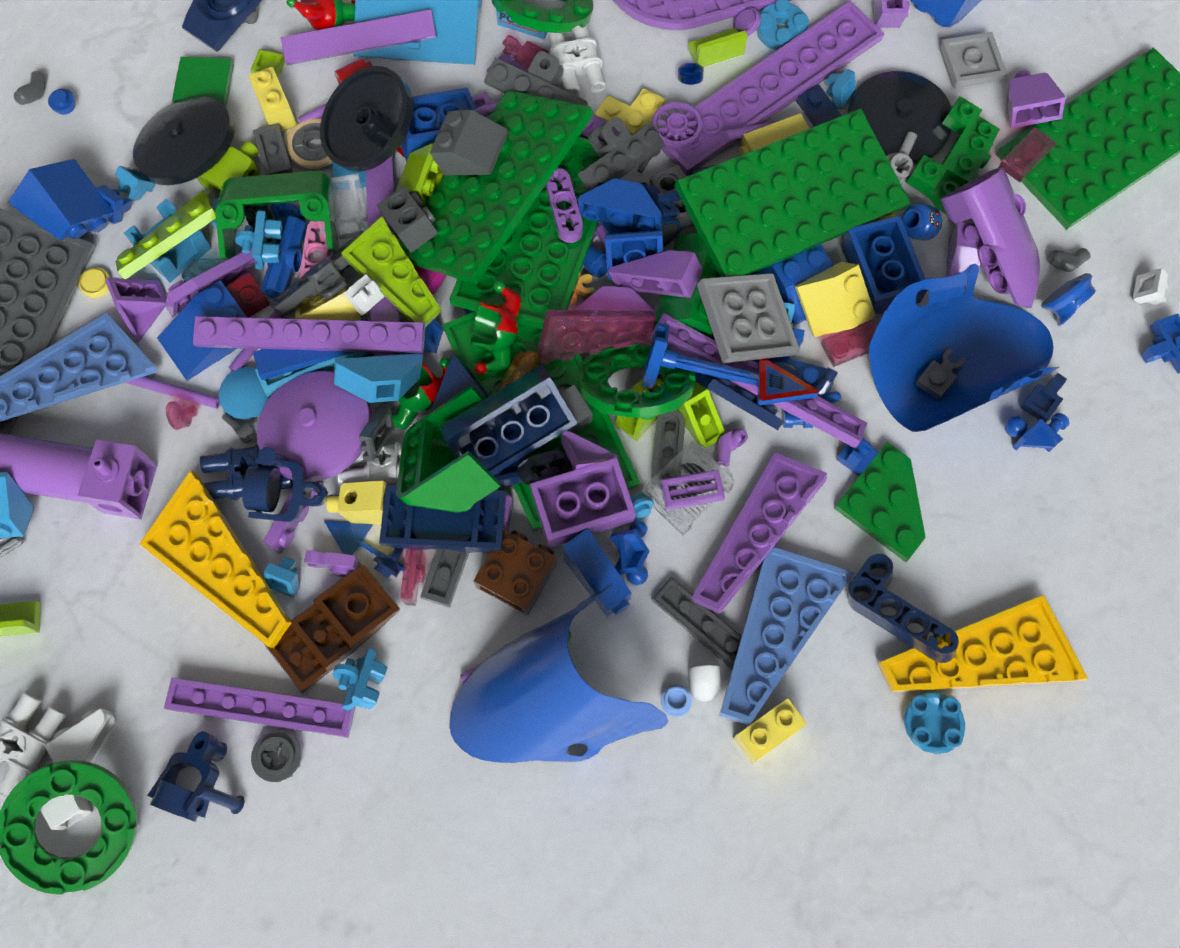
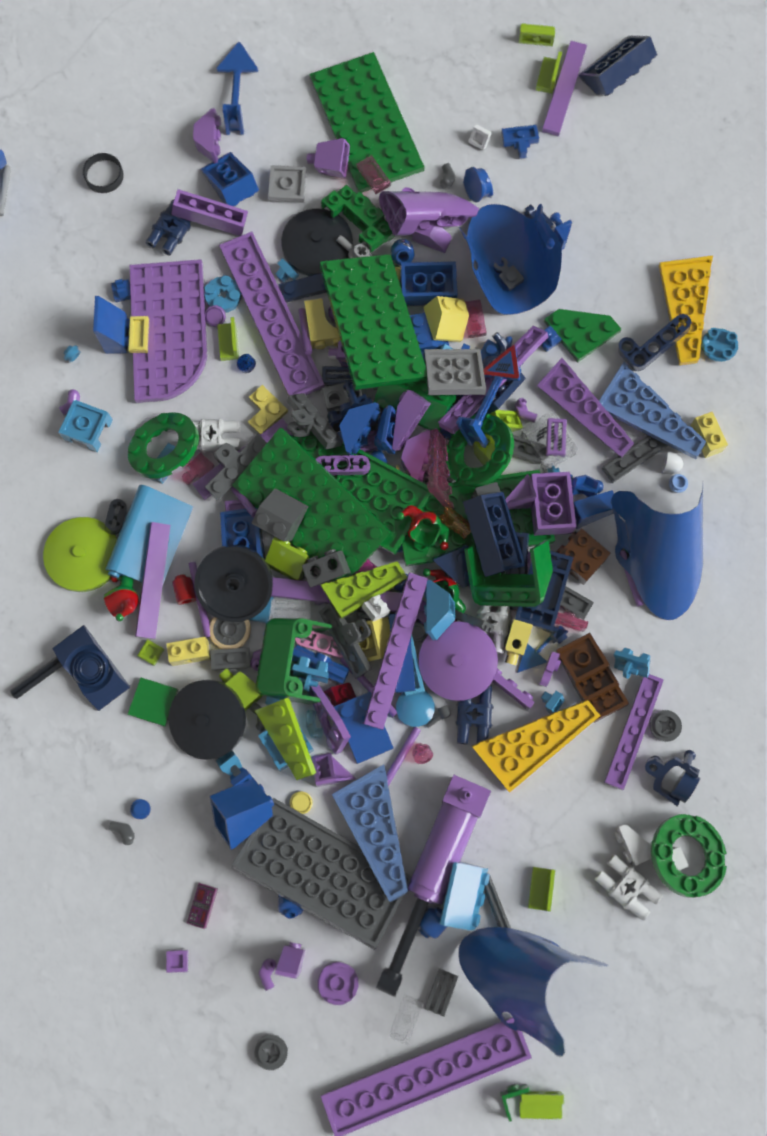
camera: 75 degrees left, 5 degrees up
(263, 488) = (498, 698): dark blue piece -> none
(541, 462) = (524, 521): black beam -> none
(678, 124) = (289, 380): medium lavender wheel -> none

